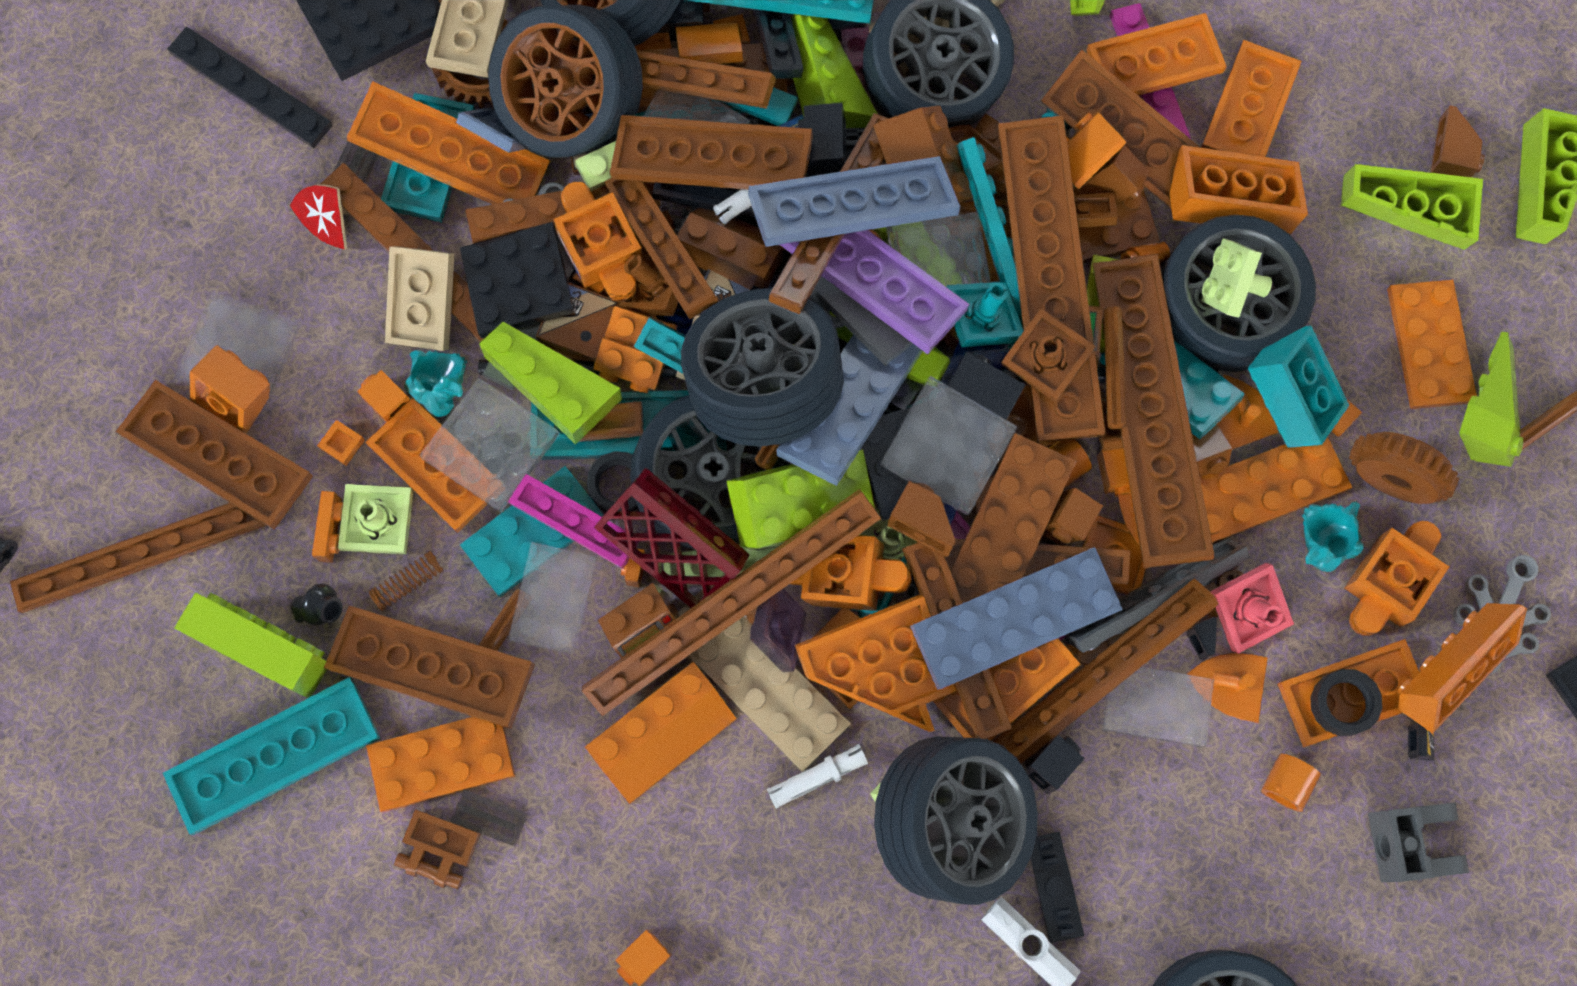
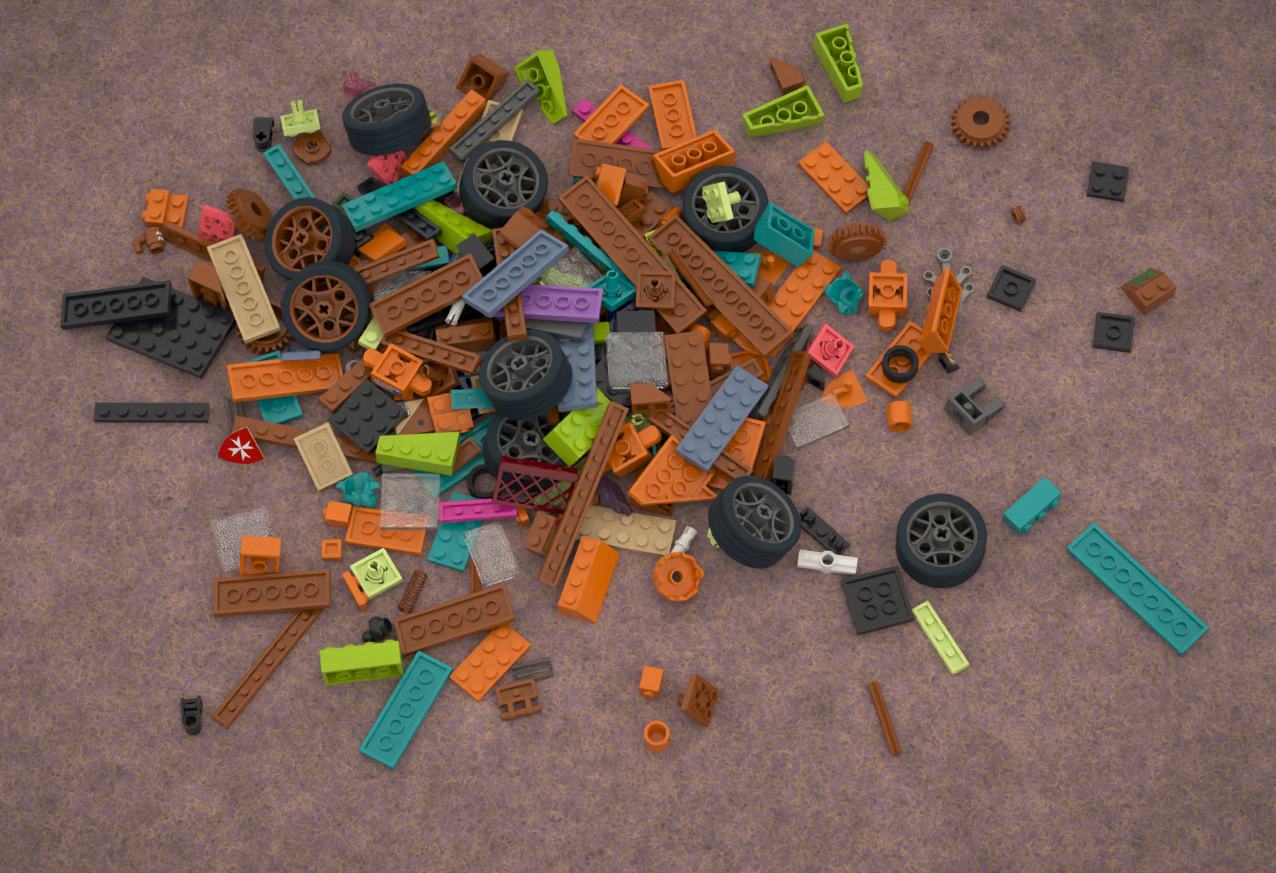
camera: 30 degrees left, 10 degrees down
(797, 838) = (689, 574): none -> orange plate

